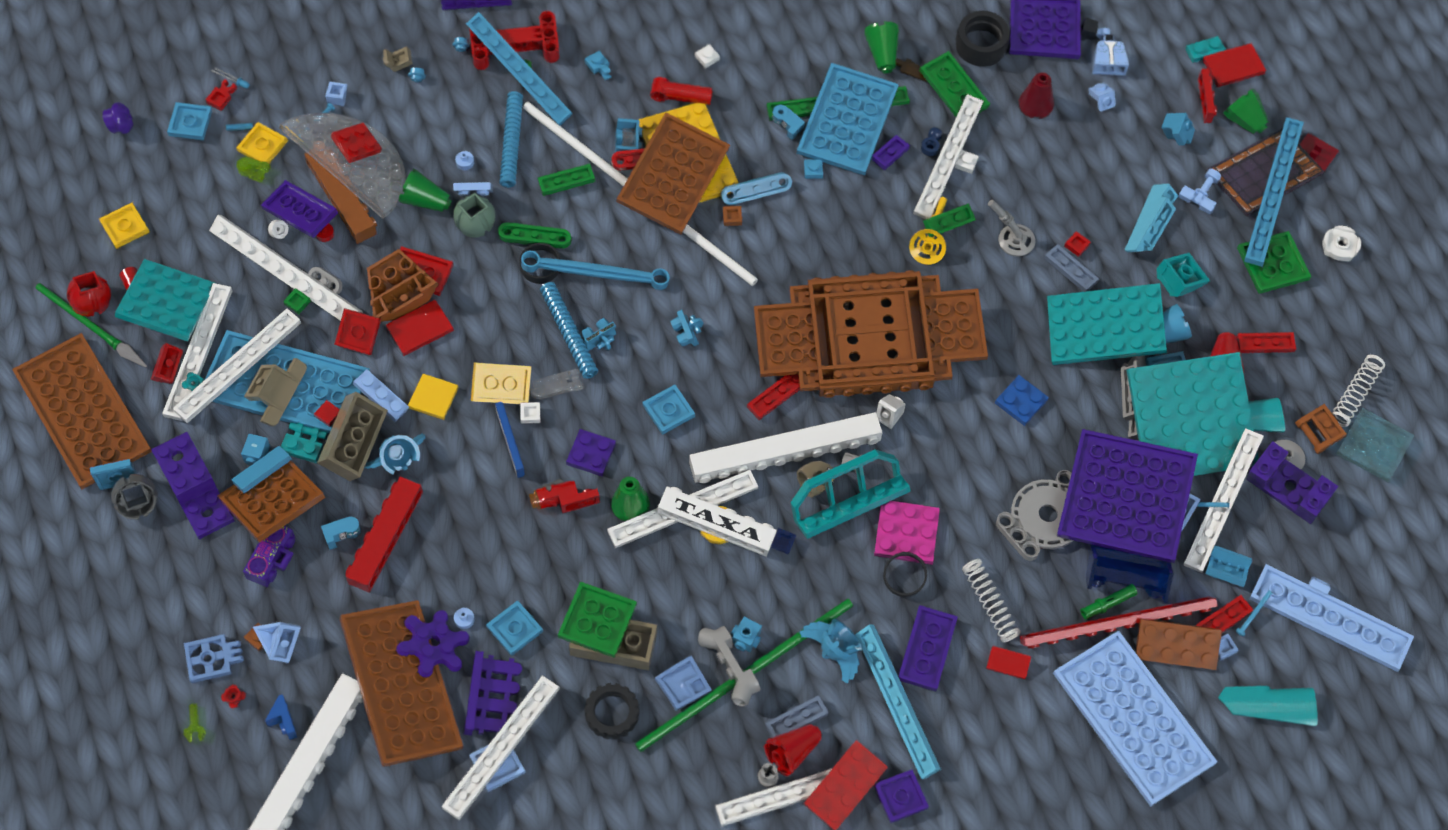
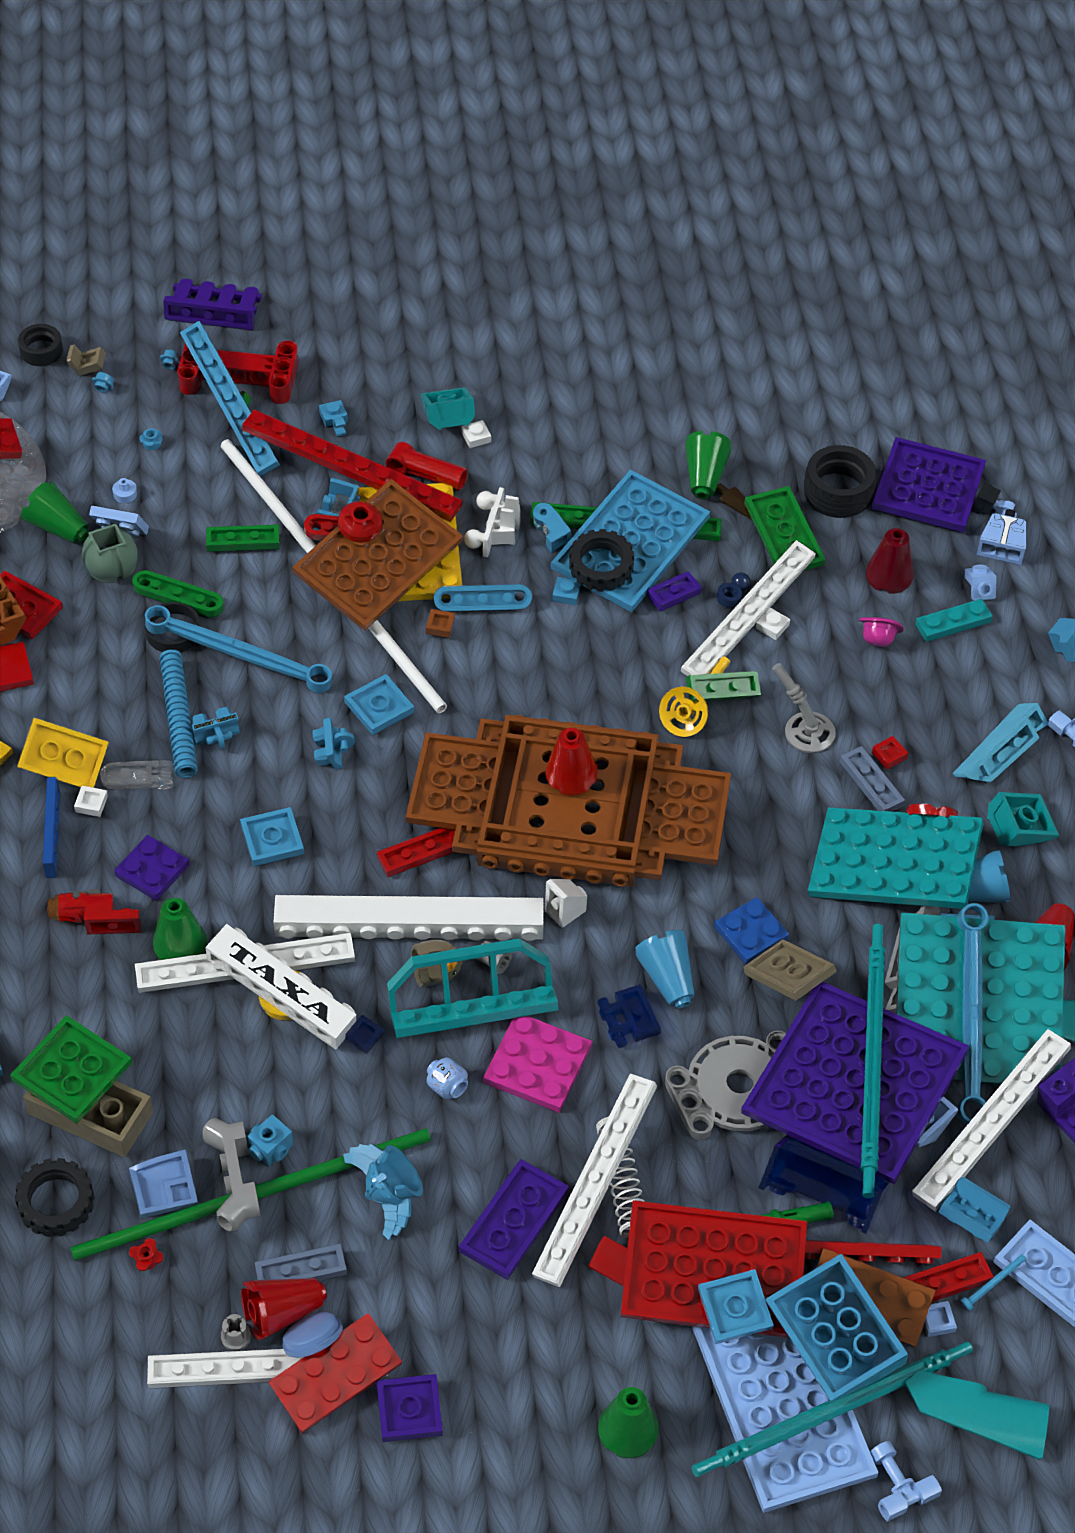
camera: 15 degrees right, 10 degrees down
(355, 42) = (43, 356): none -> black tyre
(469, 117) = (151, 439): none -> dark azure plate
(511, 139) = (191, 478): dark azure piece -> none
(625, 103) = (347, 462): none -> red plate
(651, 158) = (360, 529): none -> red piece
(682, 39) = (448, 407): none -> teal slope
(689, 741) = (149, 1262): none -> red plate
(710, 289) = (379, 704): none -> dark azure plate
(751, 125) = (500, 524): none -> white piece
(822, 764) = (311, 1334): none -> medium blue piece
(830, 125) = (602, 540): none -> black tyre
(851, 559) = (447, 1078): none -> light blue head
(869, 311) = (571, 764): none -> red cone
(898, 702) = (448, 1281): medium azure plate -> none
(905, 554) = (508, 1087): black tyre -> none
(964, 481) = (637, 1013): none -> clear blue plate
(975, 608) = (594, 1180): none -> white tile
(977, 442) = (668, 966): none -> dark azure cone
(1044, 153) = (880, 631): none -> dark pink hat
(1047, 771) = (628, 1424): none -> green cone
(1059, 424) = (789, 969): none -> dark tan tile
(1074, 652) = (686, 1246): none -> red plate
(1091, 130) = (953, 620): none -> teal plate
(1097, 675) = (735, 1306): none -> dark azure plate
(1121, 285) = (929, 810): none -> red tile
(1137, 478) = (872, 1081): none -> teal axle
(1169, 674) = (837, 1329): none -> dark azure slope
(1175, 729) = (828, 1410): none -> teal axle
(1192, 424) = (972, 1009): none -> dark azure piece
(1213, 504) = (974, 1120): dark azure piece -> none
(1237, 769) = (905, 1490): none -> light blue bar

